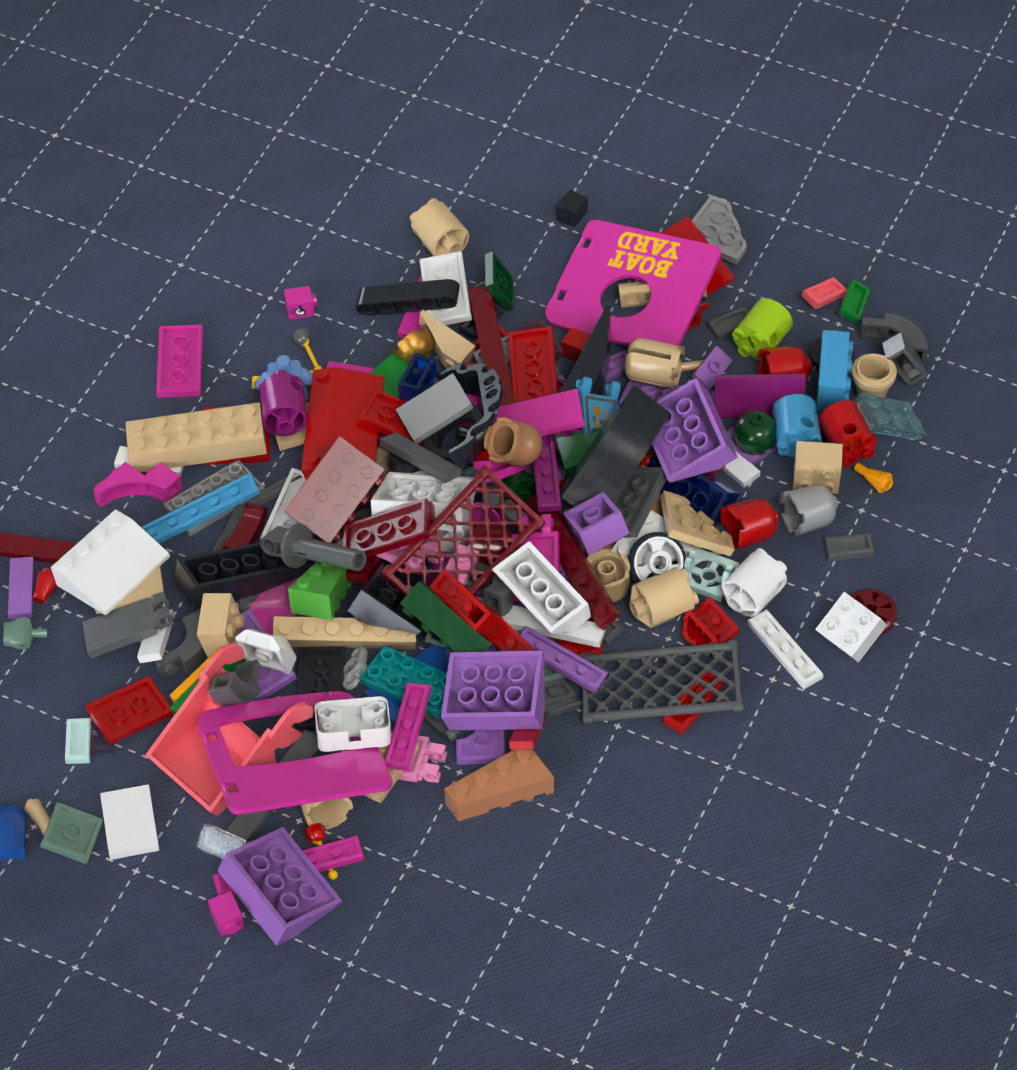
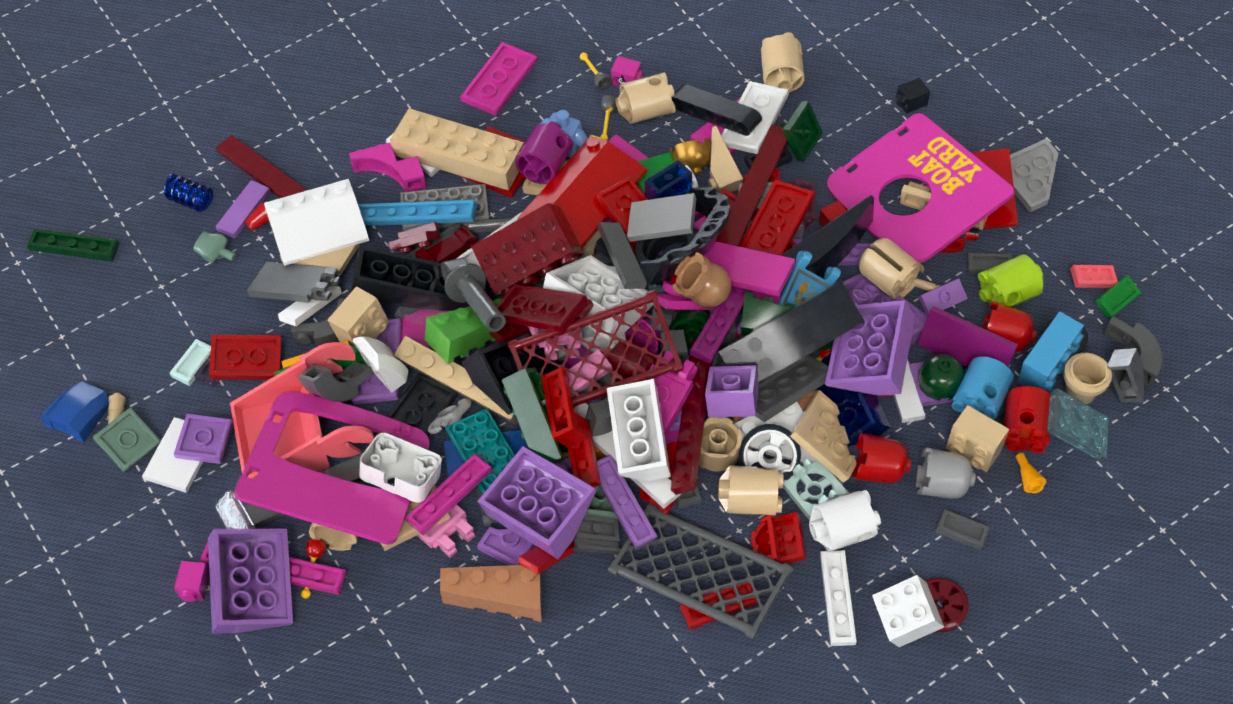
camera: 30 degrees right, 5 degrees up
(144, 796) = (203, 438): none -> medium lavender tile
(220, 527) = (417, 236): none -> slope
(279, 318) = (601, 79): none -> dark grey hinge
(337, 315) = (645, 98): none -> tan cylinder

